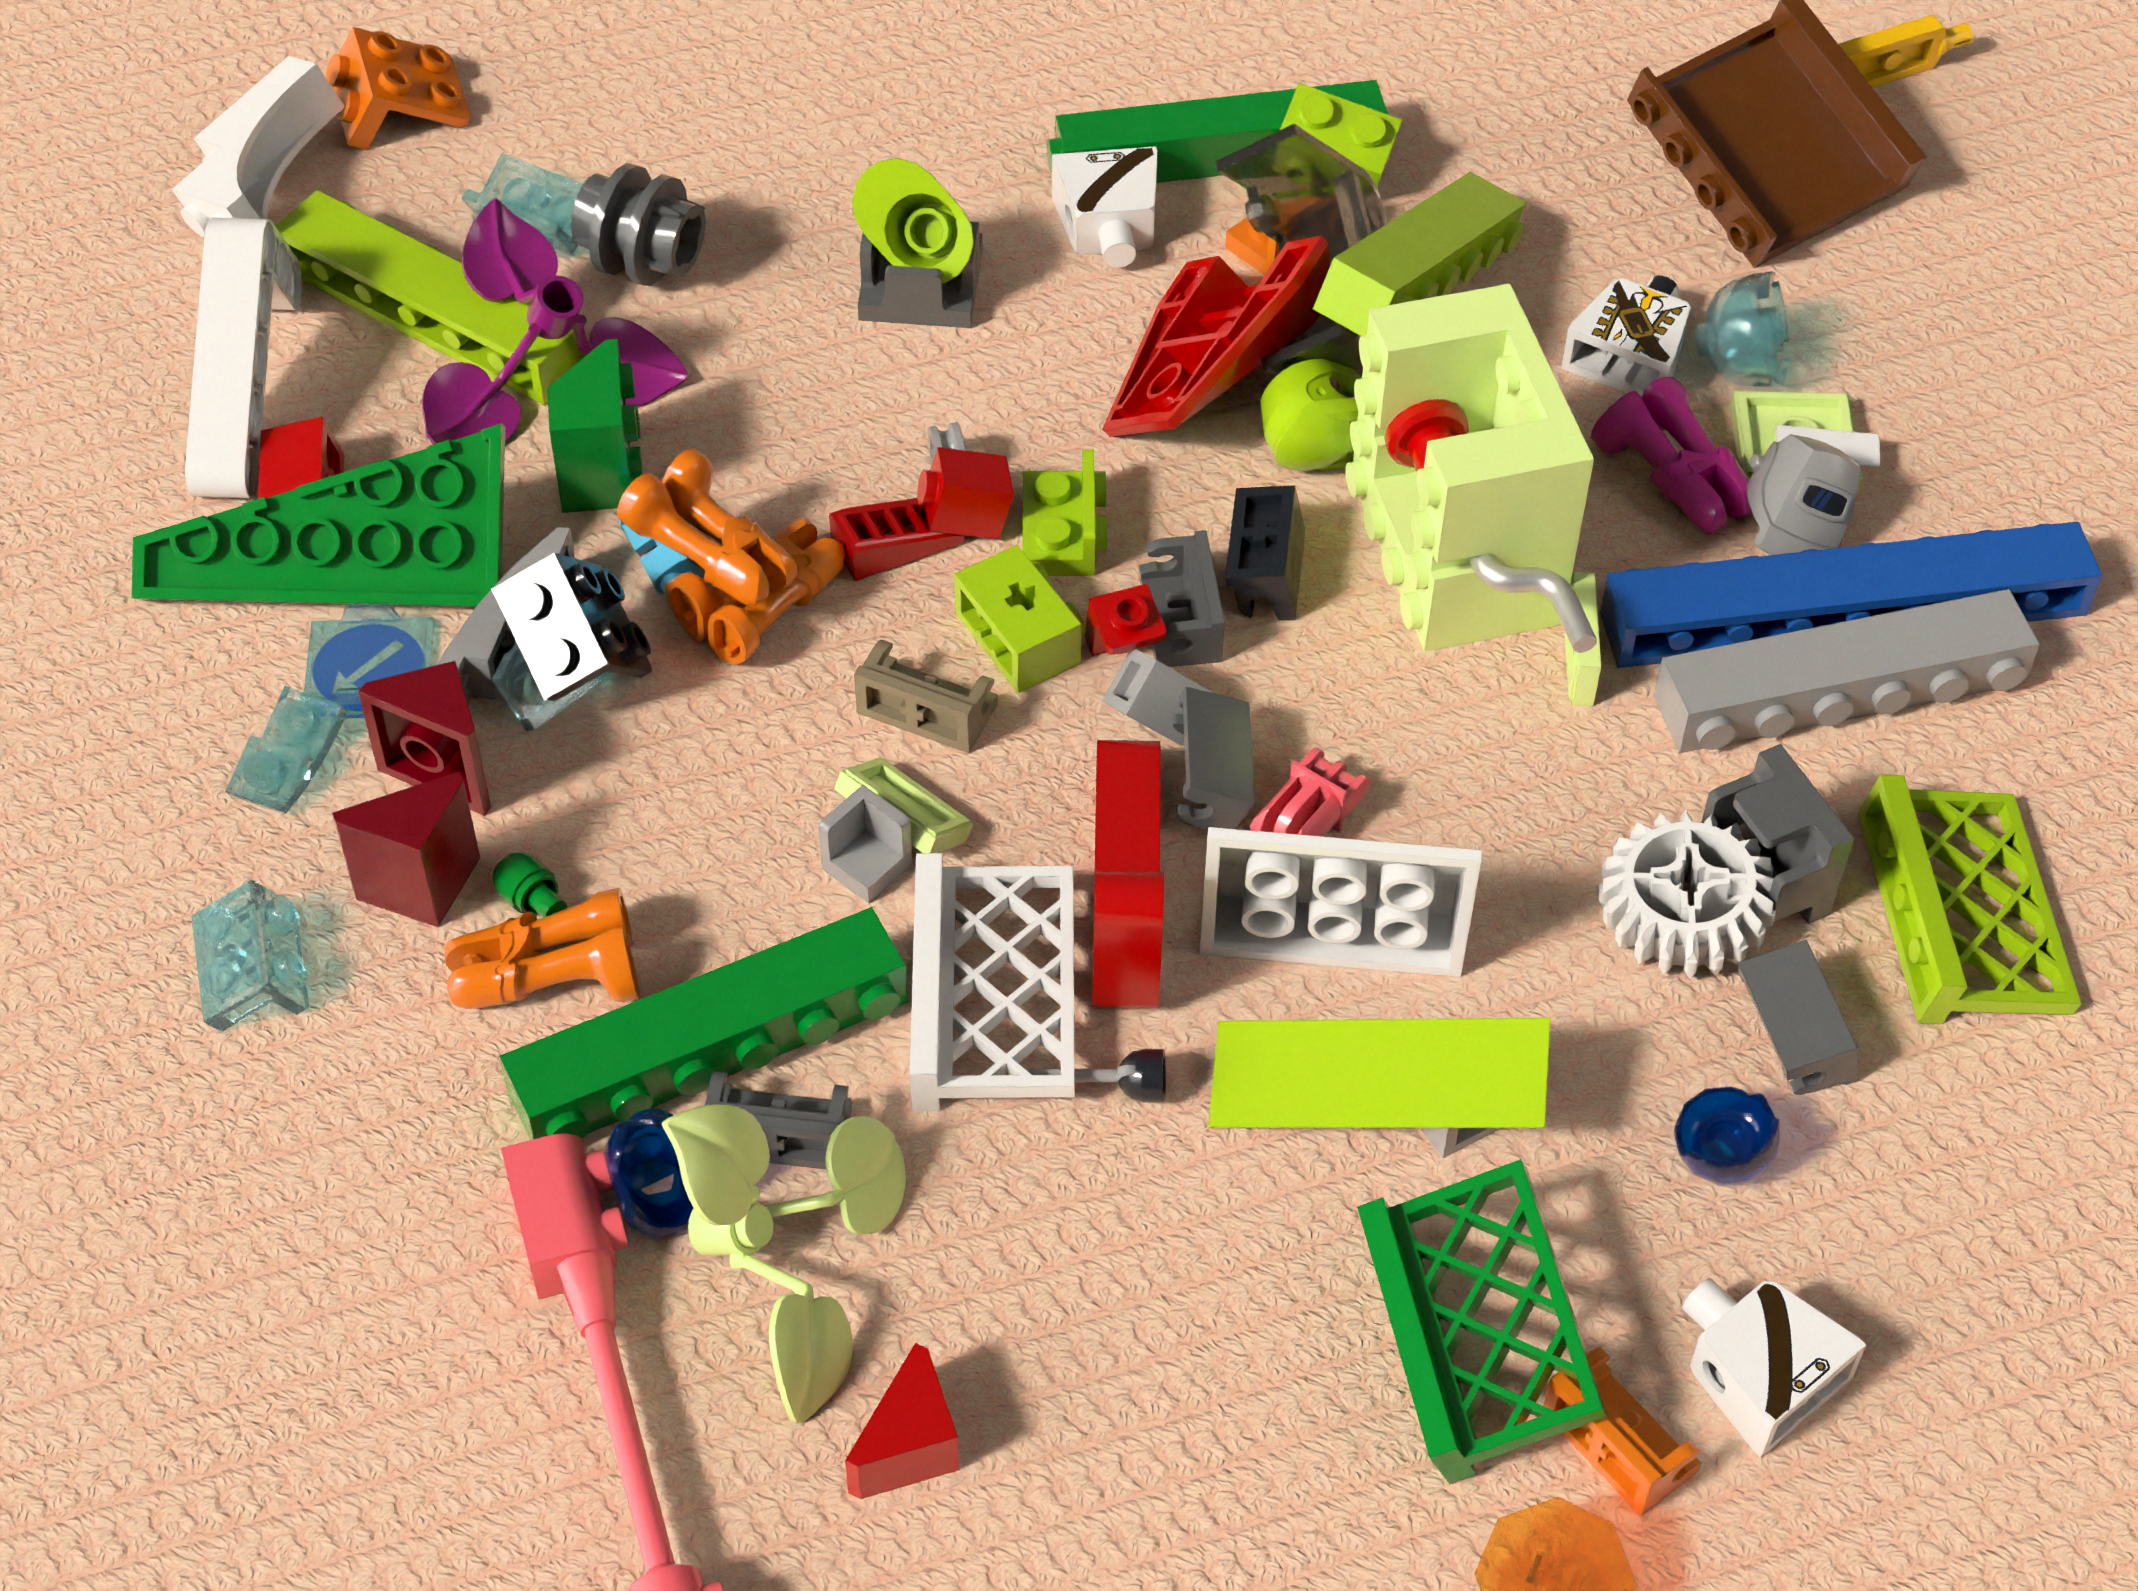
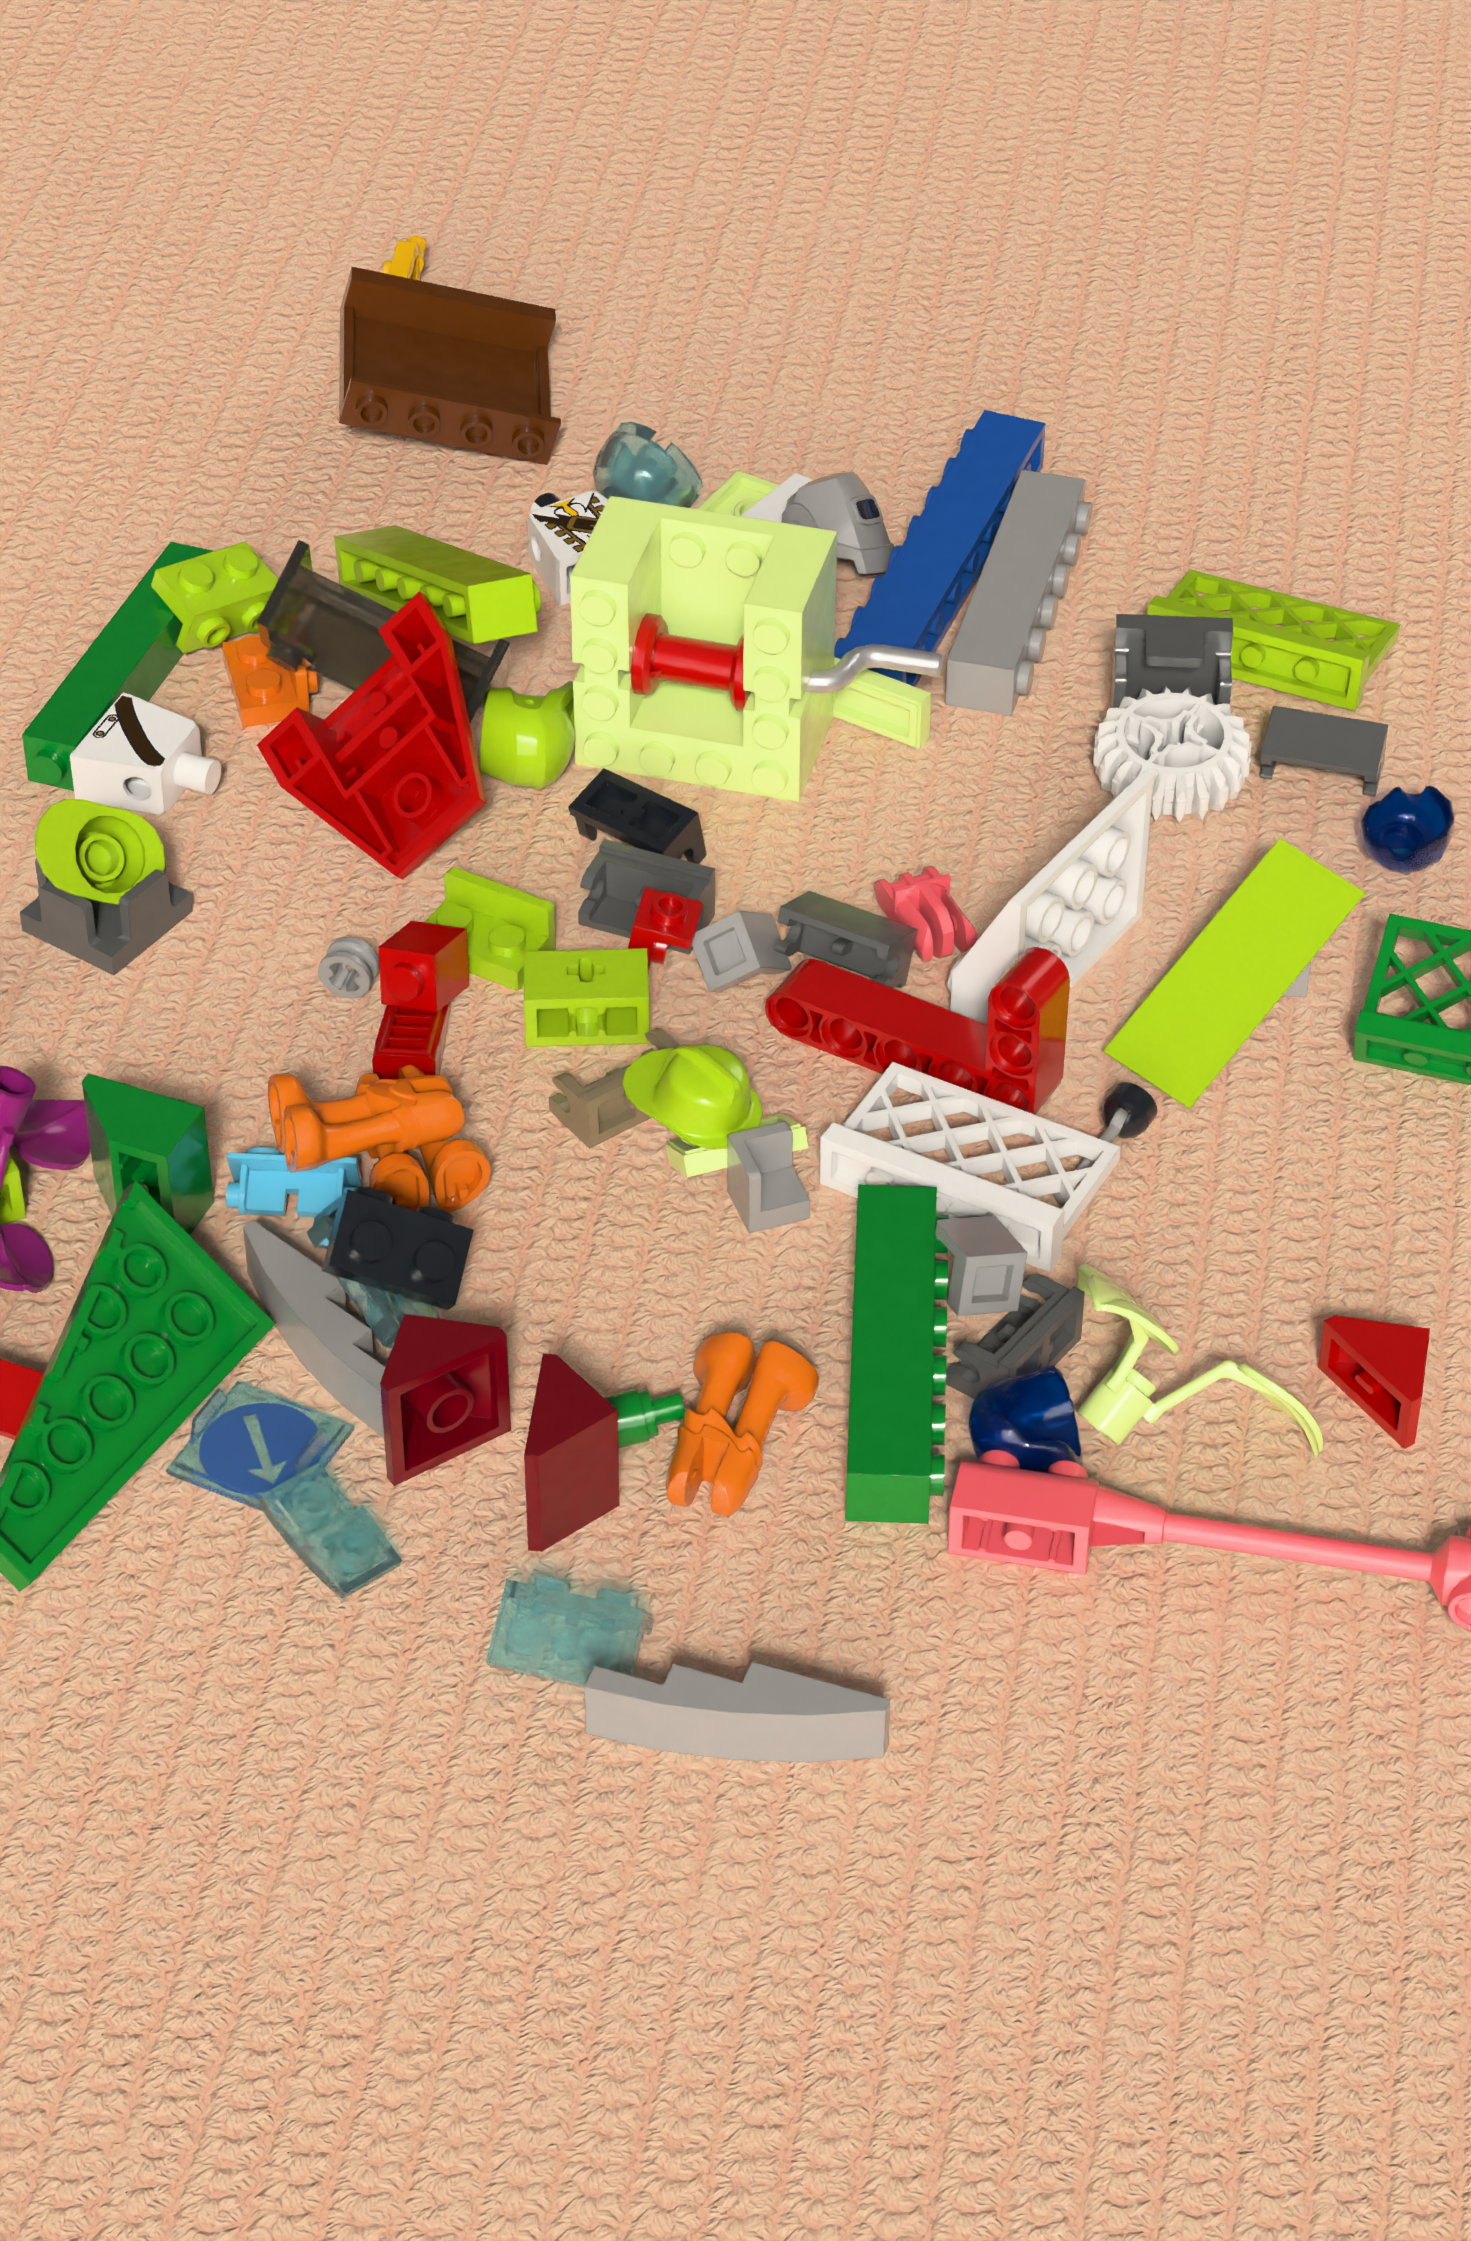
camera: 60 degrees left, 10 degrees down
(211, 1115) = (759, 1719): none -> slope
(836, 1040) = (985, 1265): none -> light grey panel
(909, 742) = (694, 1093): none -> lime piece

